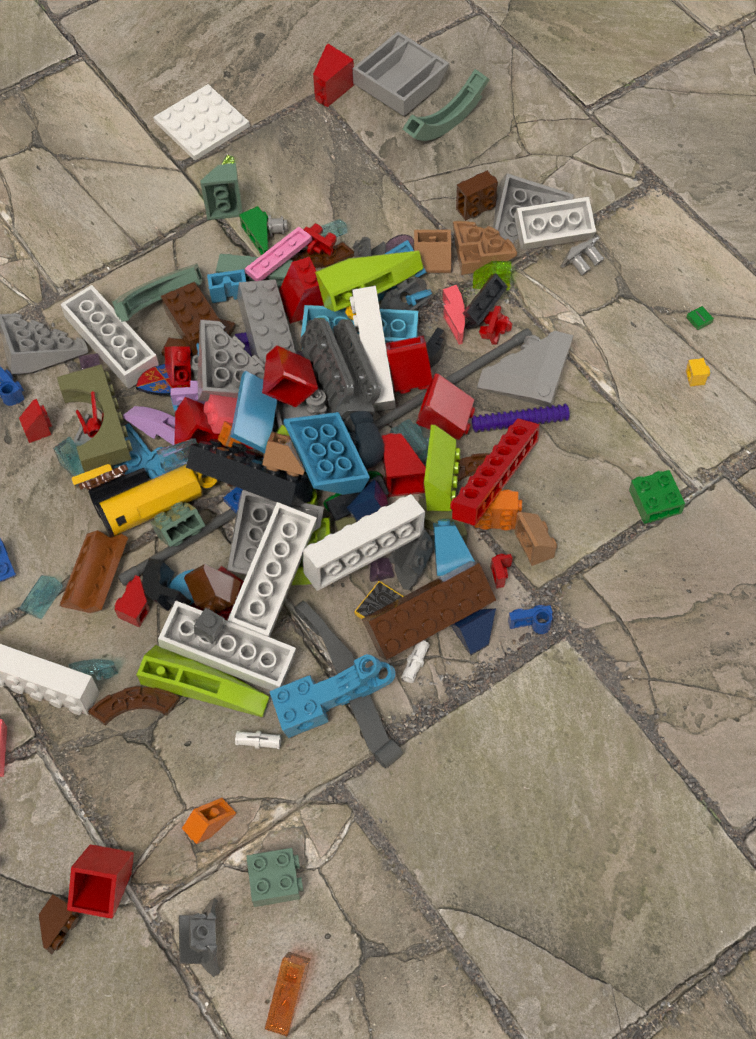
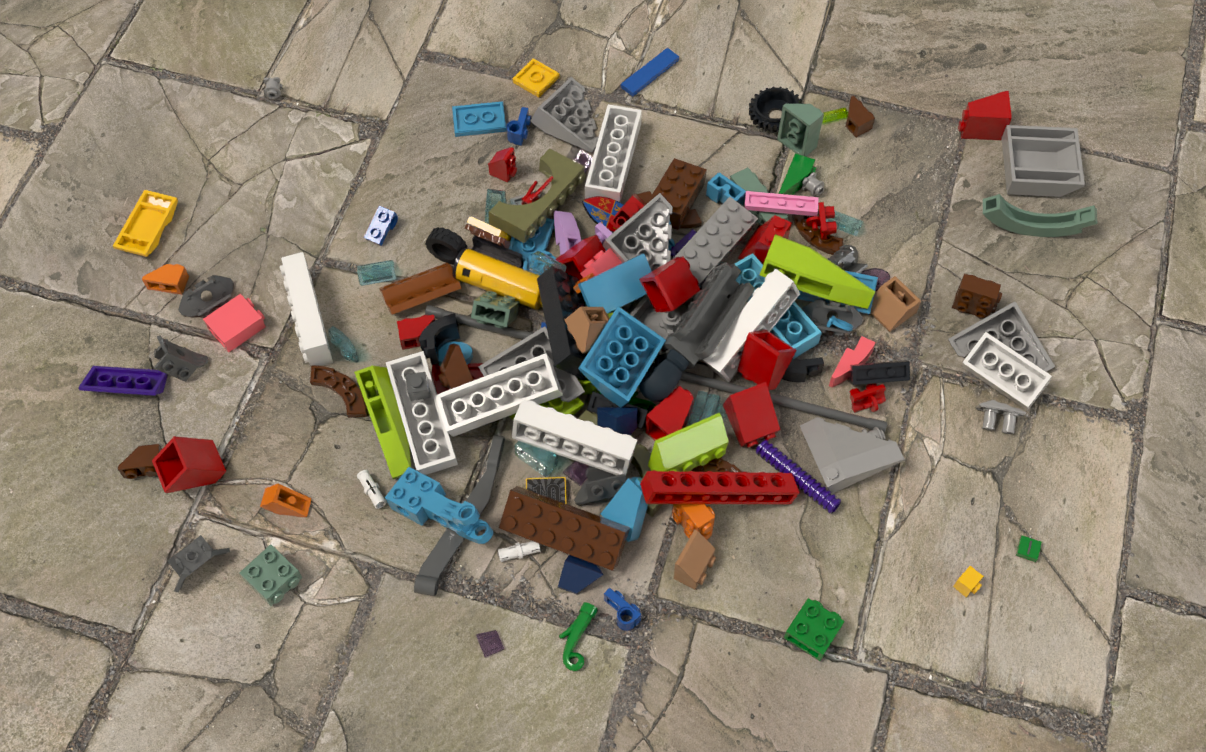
camera: 50 degrees right, 0 degrees up
(51, 257) = (649, 72): none -> blue tile
(76, 509) = (445, 244): none -> black tyre
(151, 291) = (669, 149): sand green arch -> none
(175, 190) = (767, 101): none -> black gear
(201, 122) = (860, 70): white plate -> none
(245, 153) = (858, 119): none -> reddish brown slope
(287, 993) = (194, 647): clear orange slope -> none
(343, 589) = (537, 458): none -> clear light blue brick
(479, 246) = (931, 334): medium nougat brick -> none
(479, 740) = (489, 643): none -> clear purple slope
(499, 569) = (643, 557): red bracket -> none
(501, 268) = (920, 365): clear neon green slope -> none
(521, 667) = (575, 631): none -> green plant

